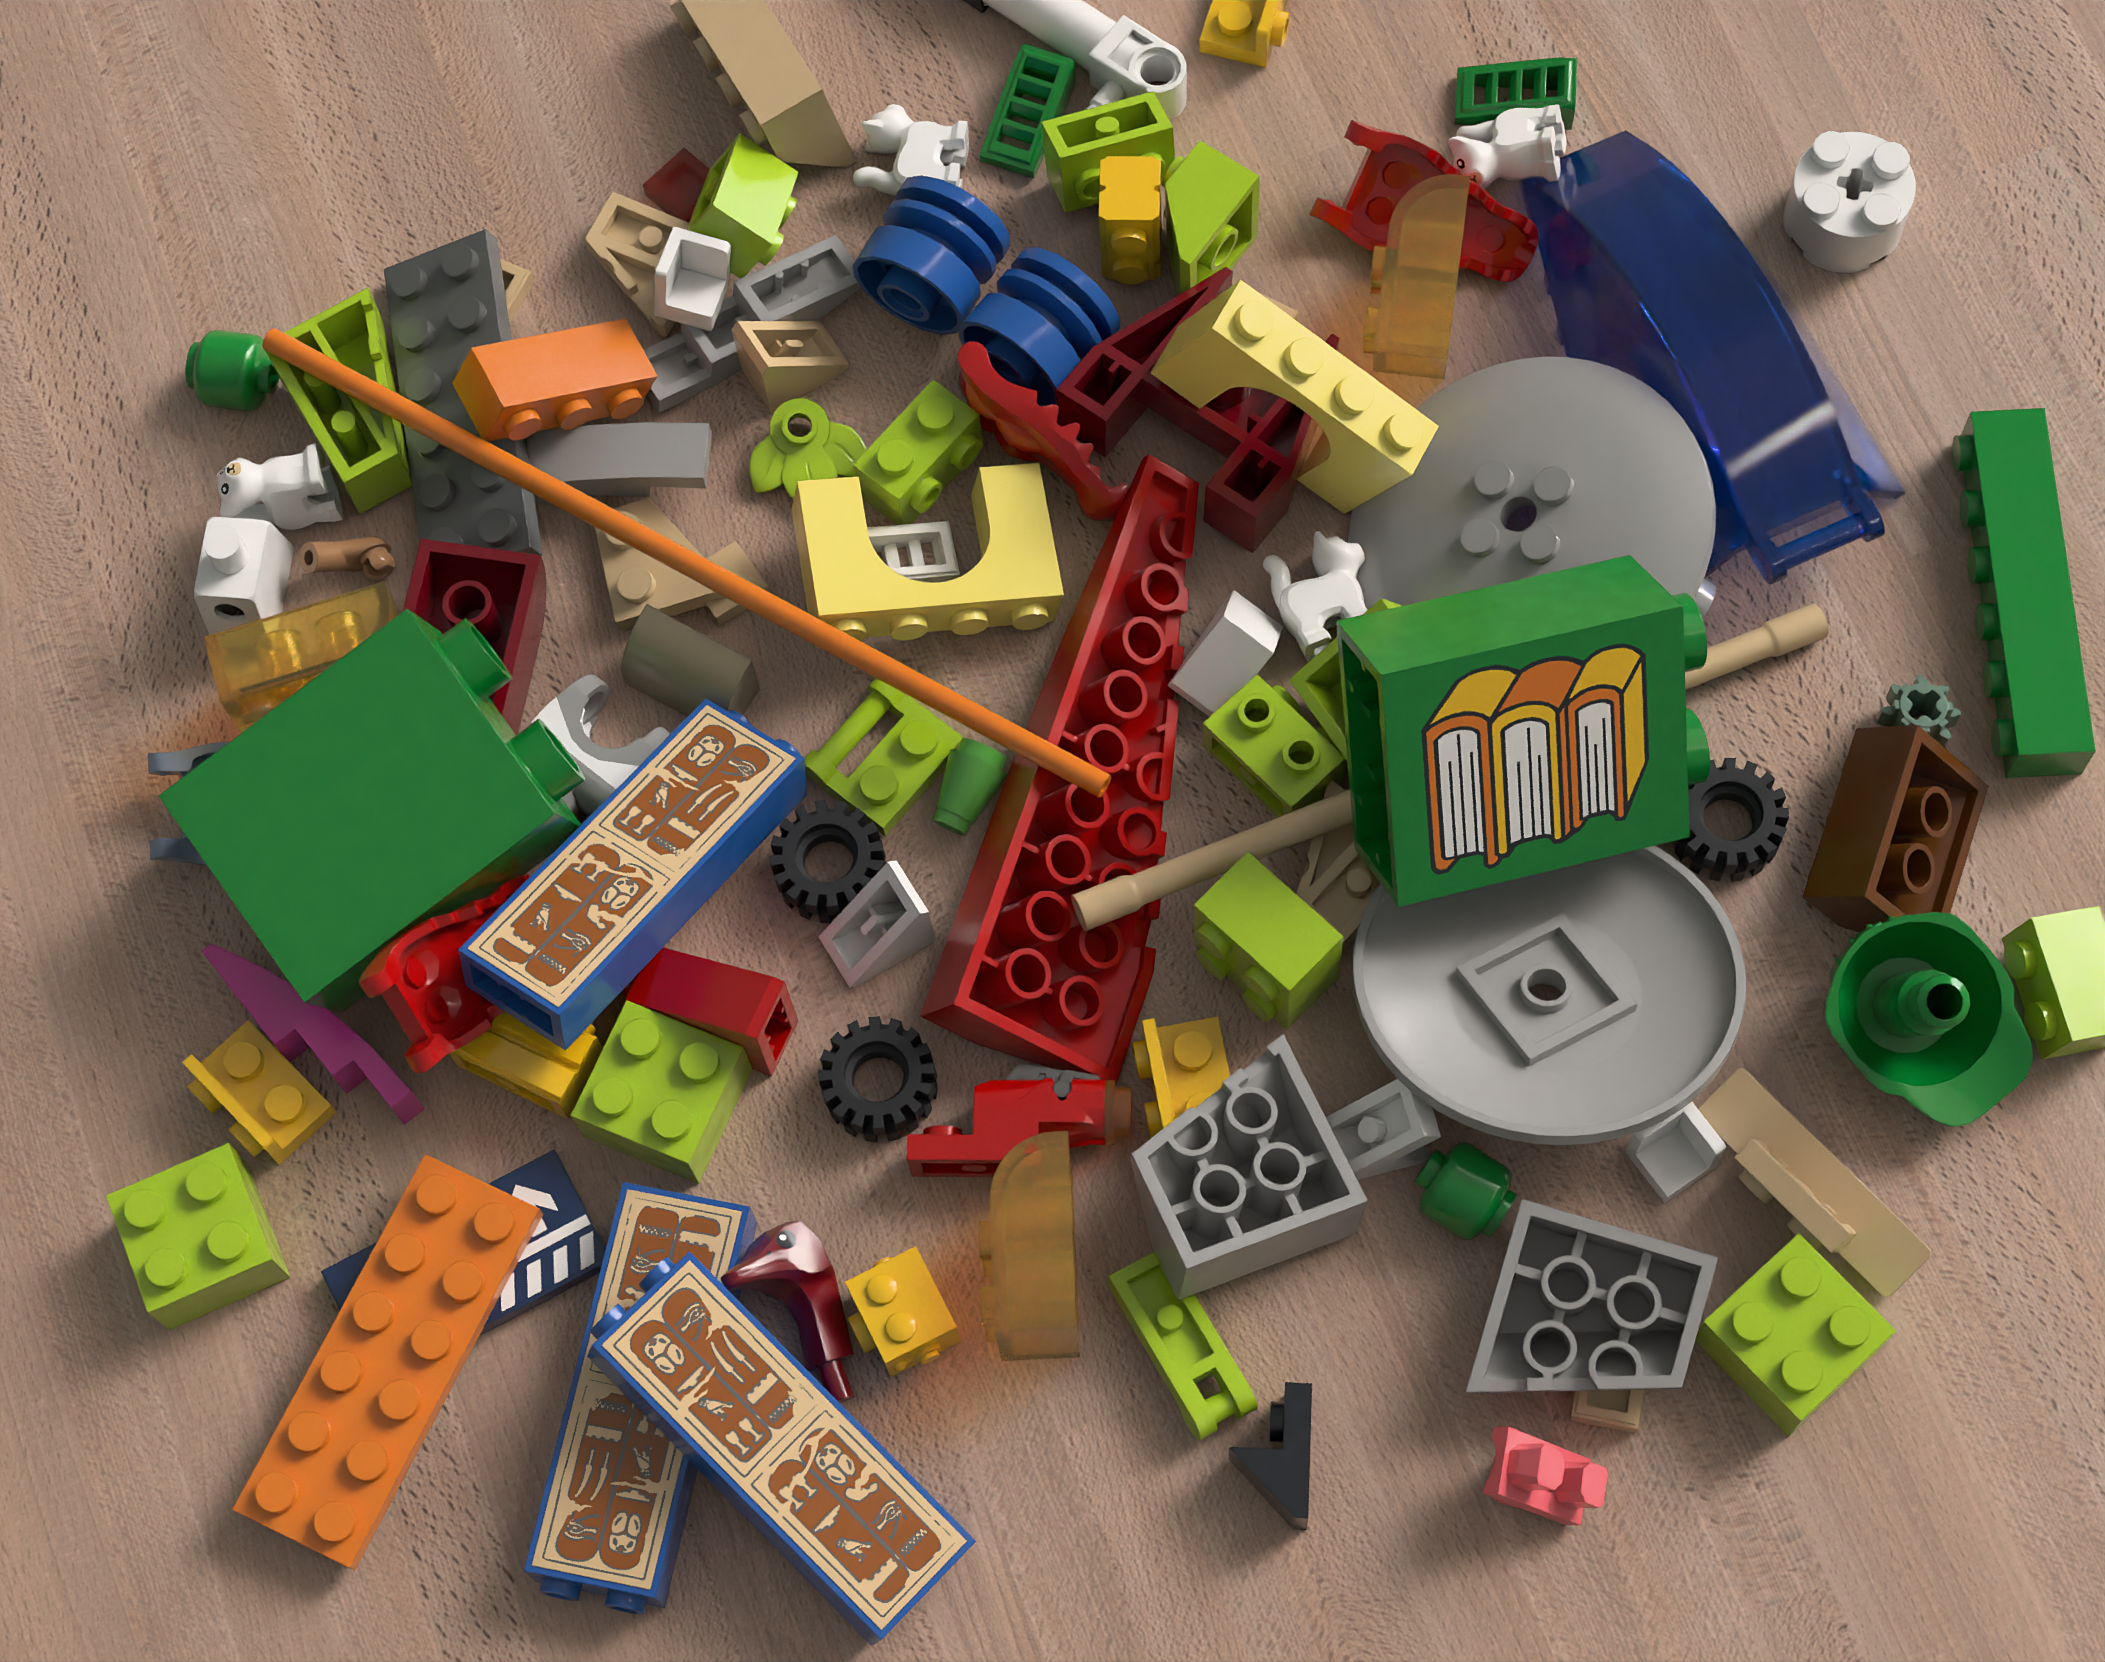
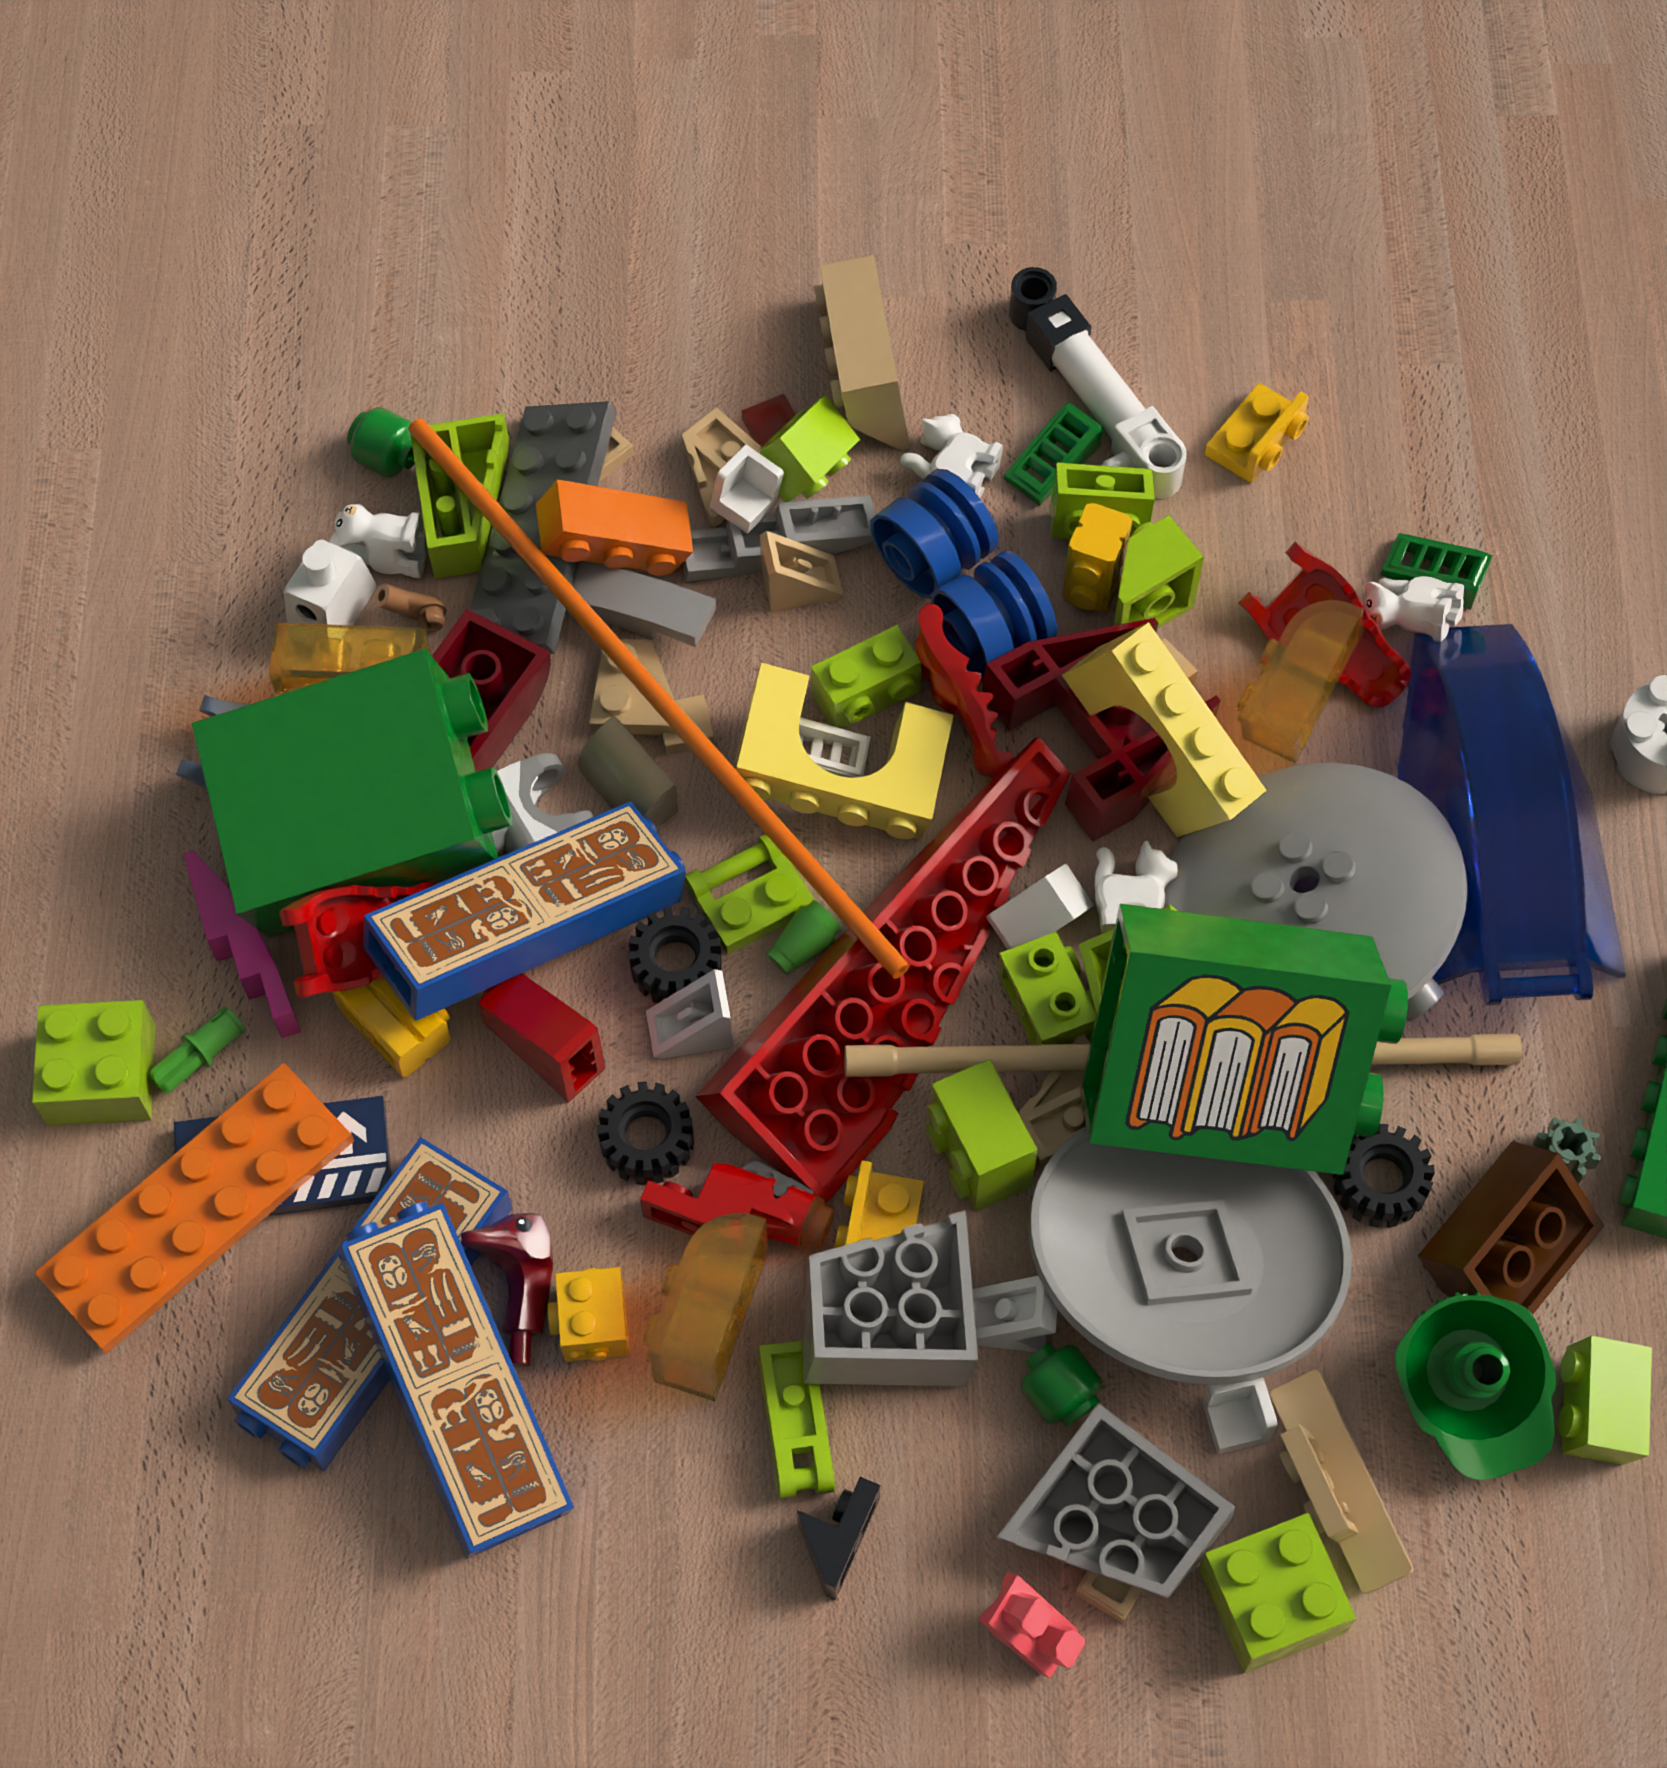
camera: 15 degrees right, 5 degrees down
(262, 1092) = (184, 973): yellow bracket -> none
(313, 1176) = (197, 1050): none -> bright green axle
(662, 1091) = (479, 1082): lime brick -> none
(821, 454) = (791, 651): lime plate -> none

